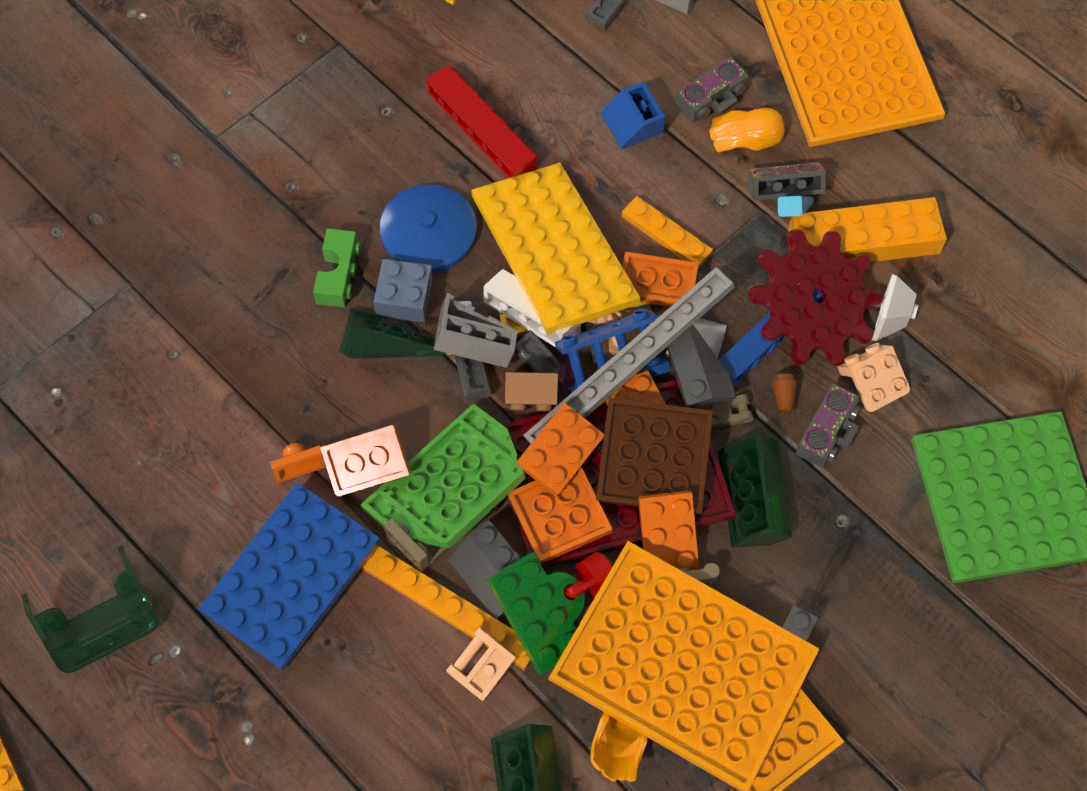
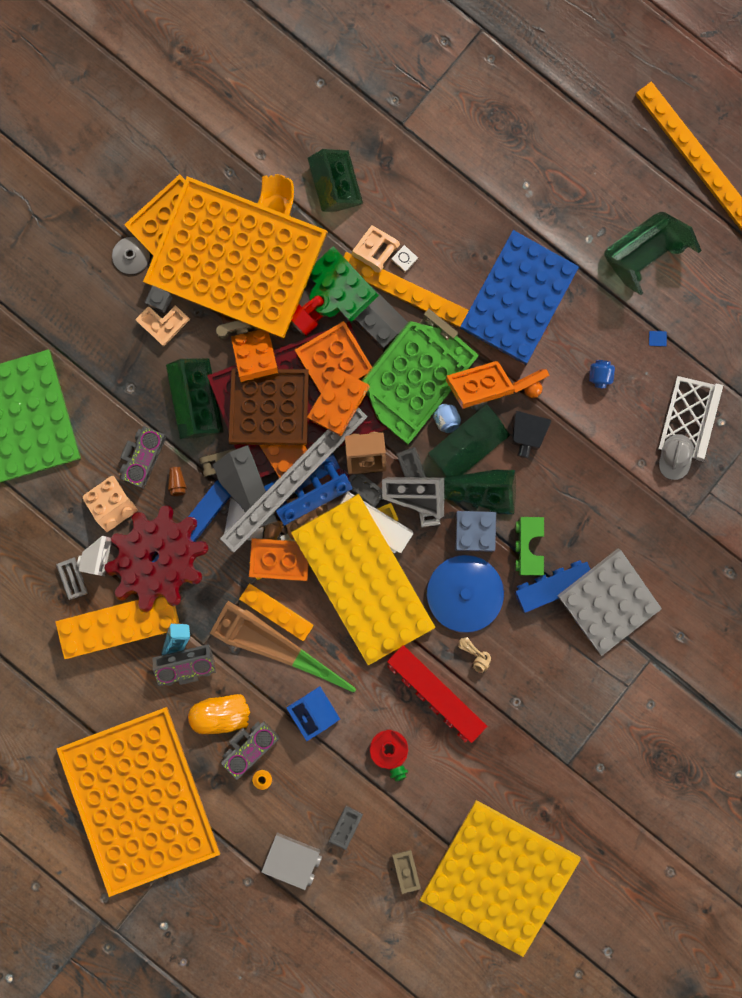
camera: 170 degrees right, 20 degrees up
(74, 386) = (708, 416): none -> white fence
(112, 505) = (658, 338): none -> blue sticker
(125, 352) = (676, 457): none -> light grey piece
(198, 462) = (601, 373): none -> blue head
(251, 193) = (609, 602): none -> light grey plate
(310, 220) = (547, 589): none -> blue brick
(311, 401) = (528, 432): none -> black torso
(396, 396) = (469, 443): none -> clear green slope
(416, 429) = (447, 418): none -> light blue head
(436, 171) = (480, 663): none -> tan piece
(442, 650) = (404, 258): none -> white tile
(538, 50) = (398, 773): none -> green plate
(544, 87) = (389, 760): none -> red plate
(700, 67) = (268, 777): none -> light orange plate
(703, 210) = (250, 633): none -> medium nougat plate
(791, 590) = (162, 329): none -> light nougat plate
(838, 715) = (132, 264): none -> light grey dish
(922, 316) = (81, 582): none -> light grey tile

